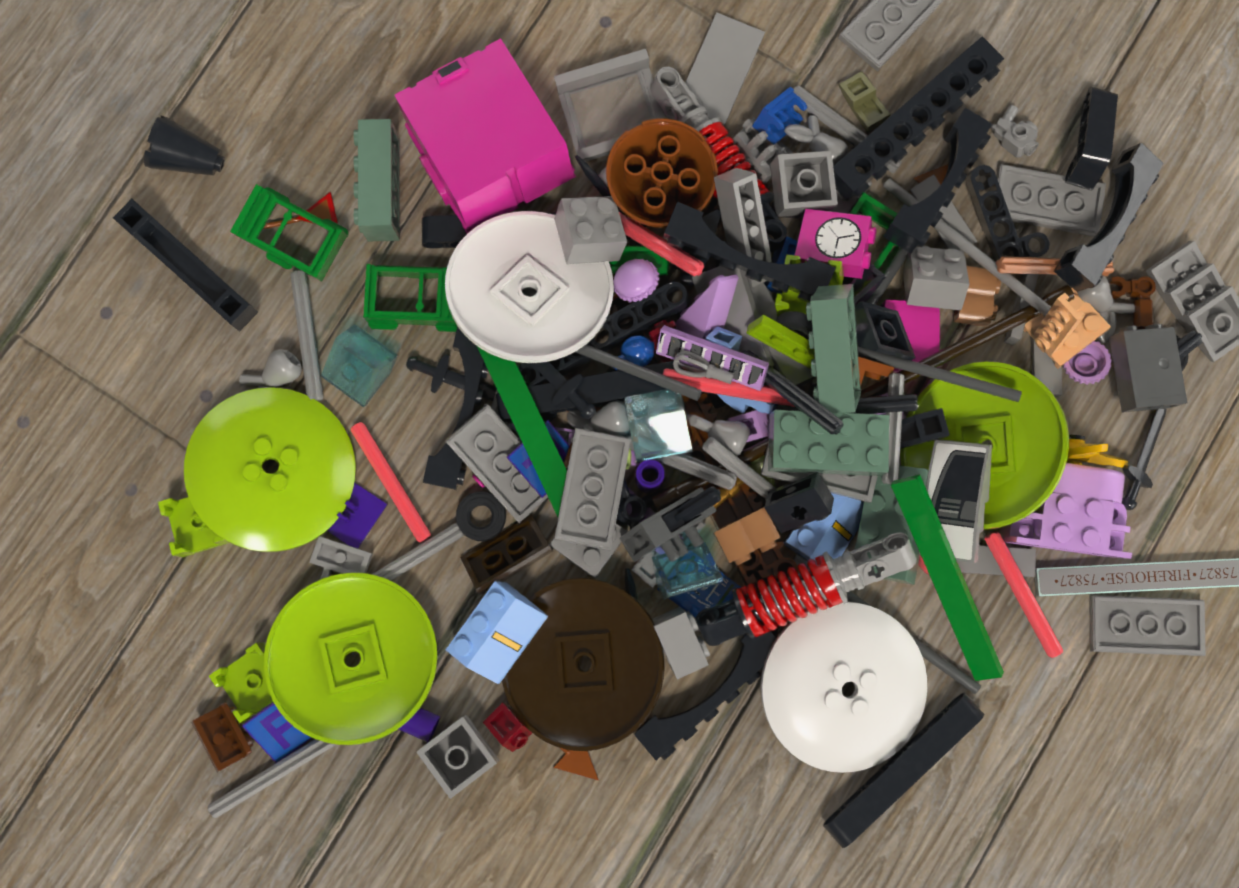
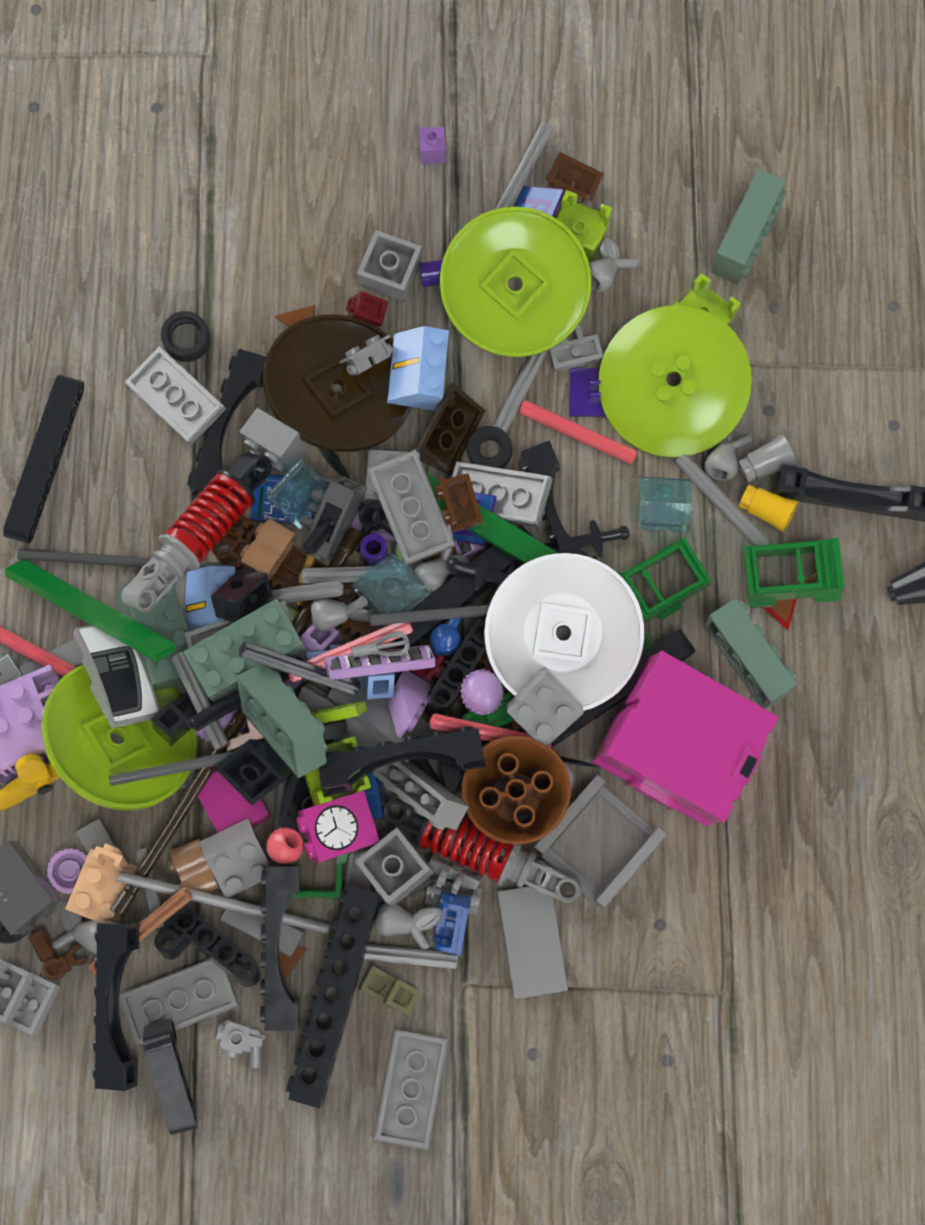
camera: 150 degrees right, 5 degrees down
(94, 574) = (749, 227): none -> sand green brick
(239, 345) = (767, 459): none -> light grey plant
(255, 624) = (605, 269): none -> light grey piece
(269, 301) = (769, 507): none -> yellow plant
(335, 861) = (432, 145): none -> medium lavender brick
(525, 676) = (375, 349): none -> light grey hinge
(546, 462) = (459, 502): none -> reddish brown bracket
(716, 823) = (179, 319): none -> black tyre
(743, 753) = (175, 395): none -> light grey tile
(806, 679) = (125, 523): white dish -> none
(890, 255) = (285, 846): none -> coral piece

